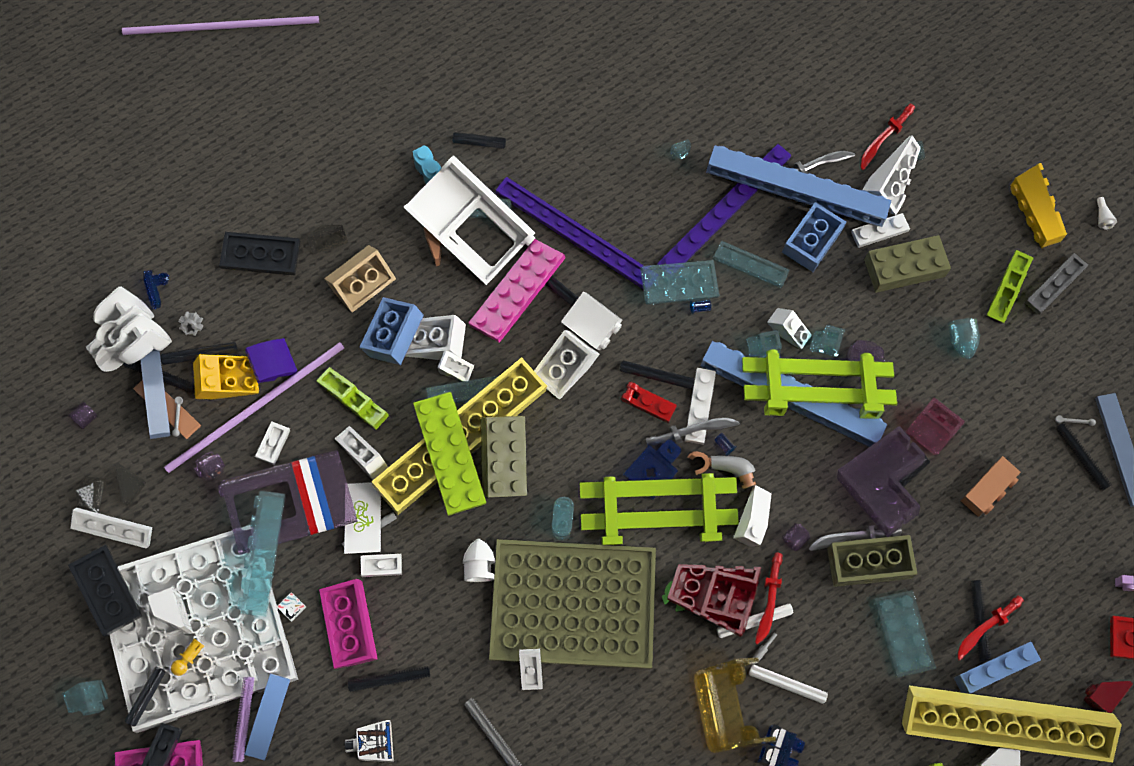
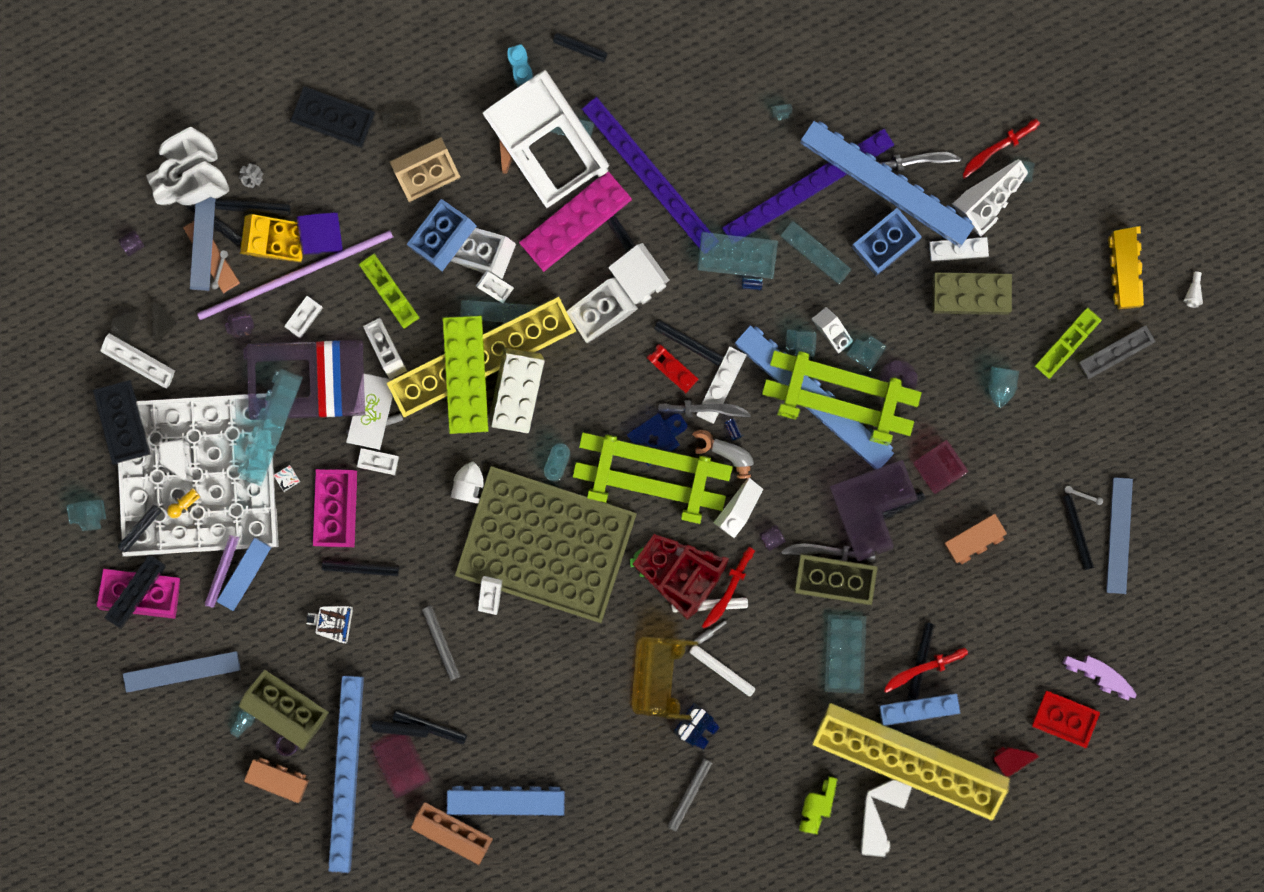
camera: 25 degrees right, 15 degrees up
(151, 283) = (220, 122): clear blue piece -> none

